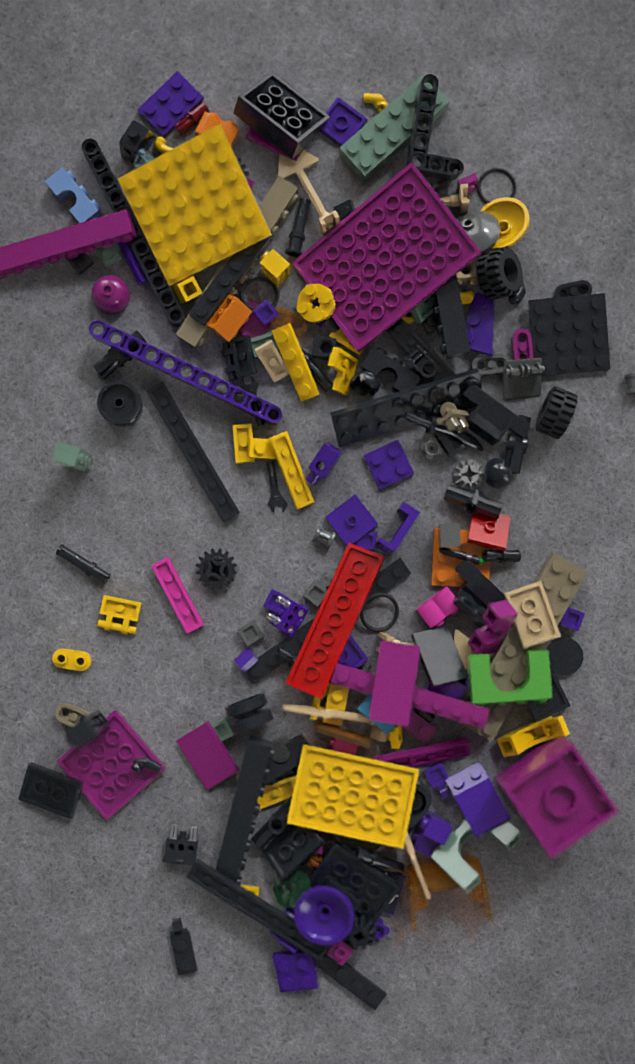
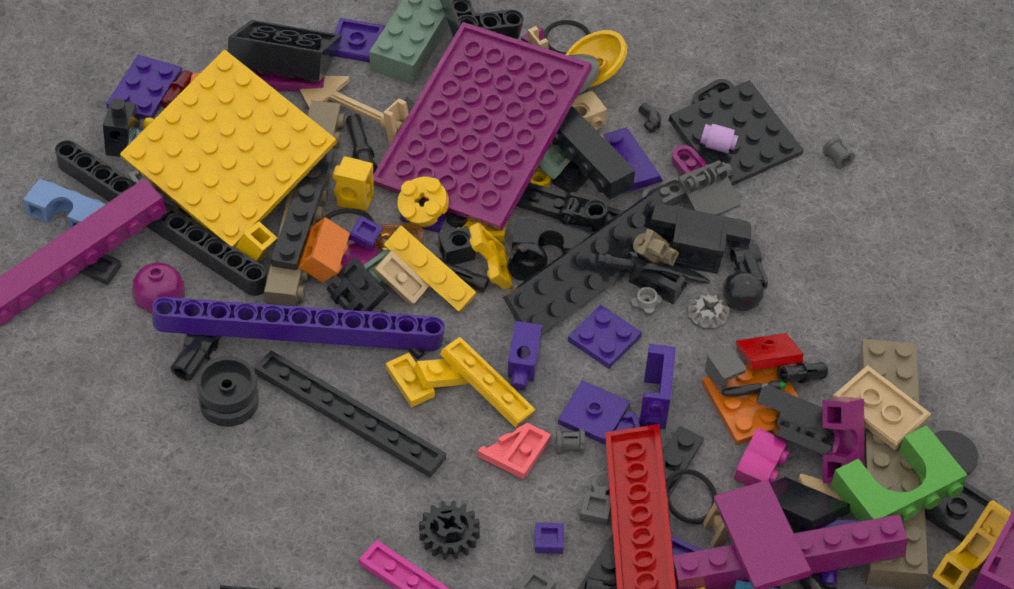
camera: 20 degrees left, 35 degrees down
(72, 457) = (194, 461): sand green arch -> none
(109, 255) = (138, 250): sand green plate -> none
(131, 260) = (171, 243): dark purple axle -> none
(276, 498) = (483, 425): black piece -> none
(287, 528) = (517, 450): none -> coral wing
(288, 616) = (574, 542): dark purple piece -> none
(375, 99) = (386, 7): yellow arm -> none
(473, 501) = (715, 332): black piece -> none
(499, 273) = (621, 98): black tyre -> none
(550, 341) = (719, 138): none -> lavender brick
(556, 412) = (771, 201): black tyre -> none
(572, 619) = (936, 406): dark purple plate -> none

